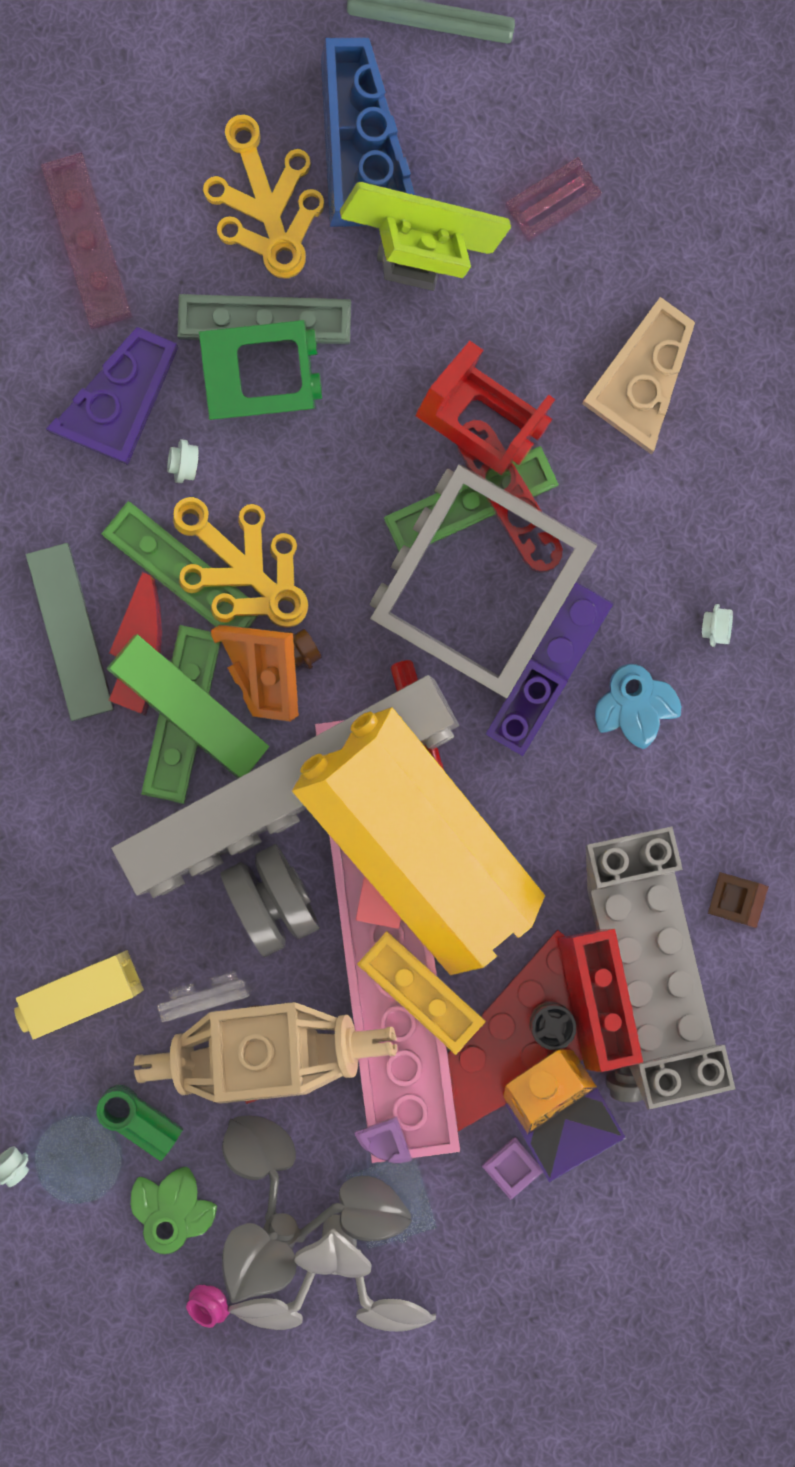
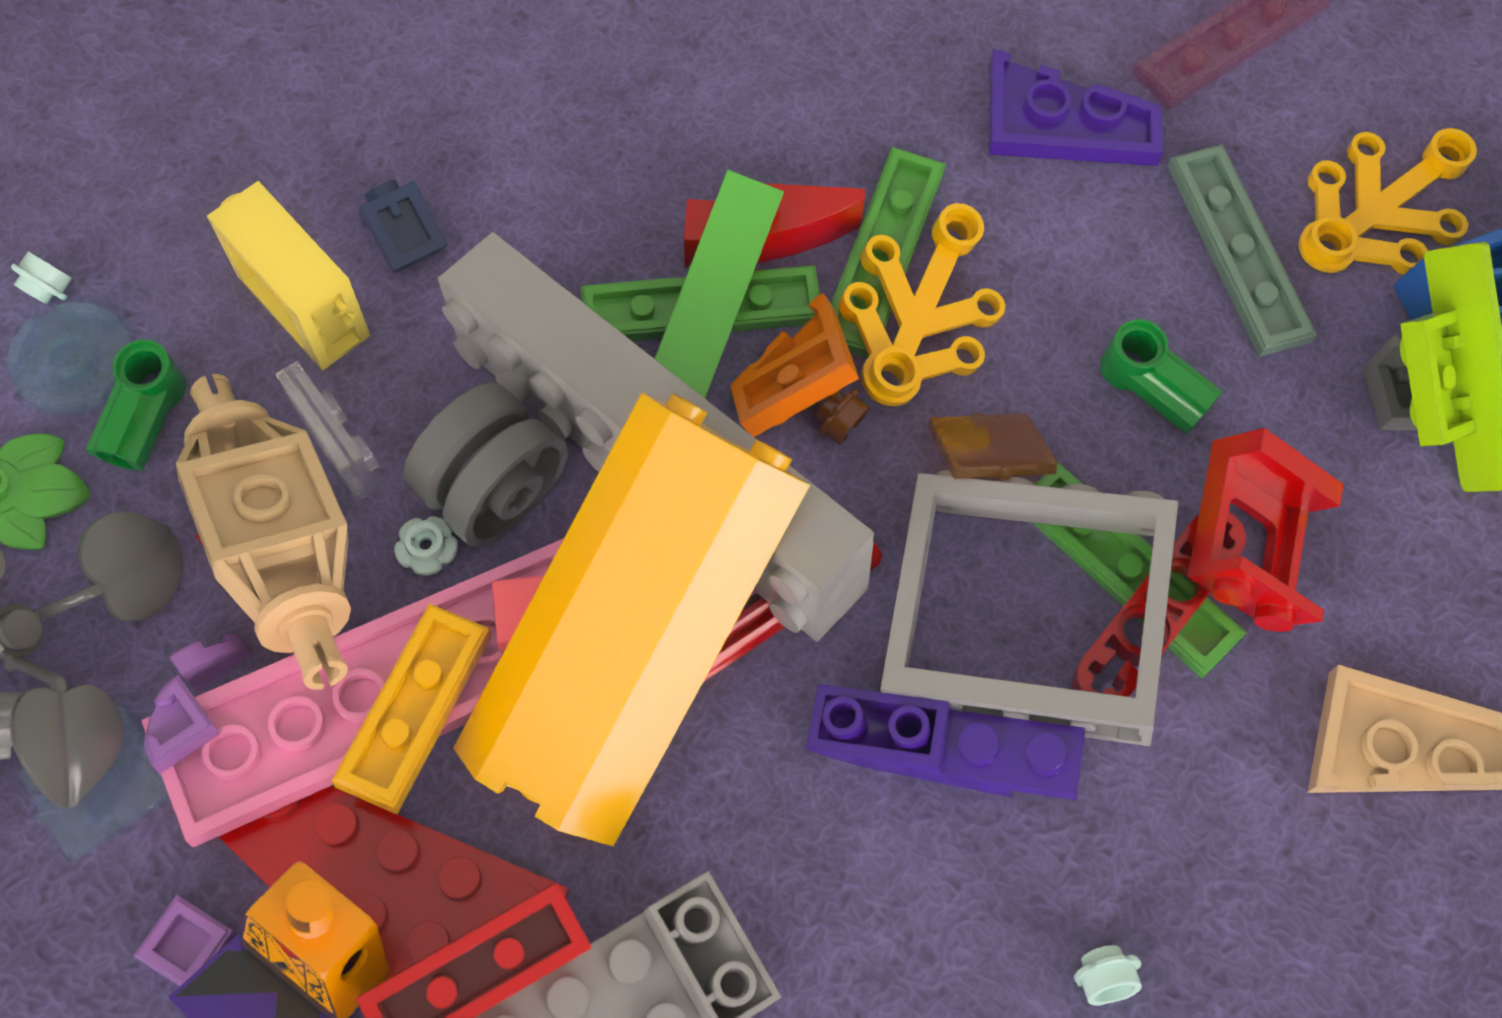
camera: 65 degrees right, 20 degrees down
(50, 906) = (401, 224): none -> dark blue bracket
(70, 632) = (759, 147): sand green tile -> none
(183, 461) = (1021, 205): light aqua plate -> none
(222, 371) = (1155, 199): green window -> none
(305, 966) = (430, 560): none -> light aqua plate
(338, 1116) = (204, 665): none -> medium lavender tile
(351, 421) = (1162, 378): none -> green piece
(362, 559) = (992, 446): none -> clear orange piece
(558, 1028) = (406, 906): black wheel -> none
(638, 711) = (933, 901): dark azure plate -> none

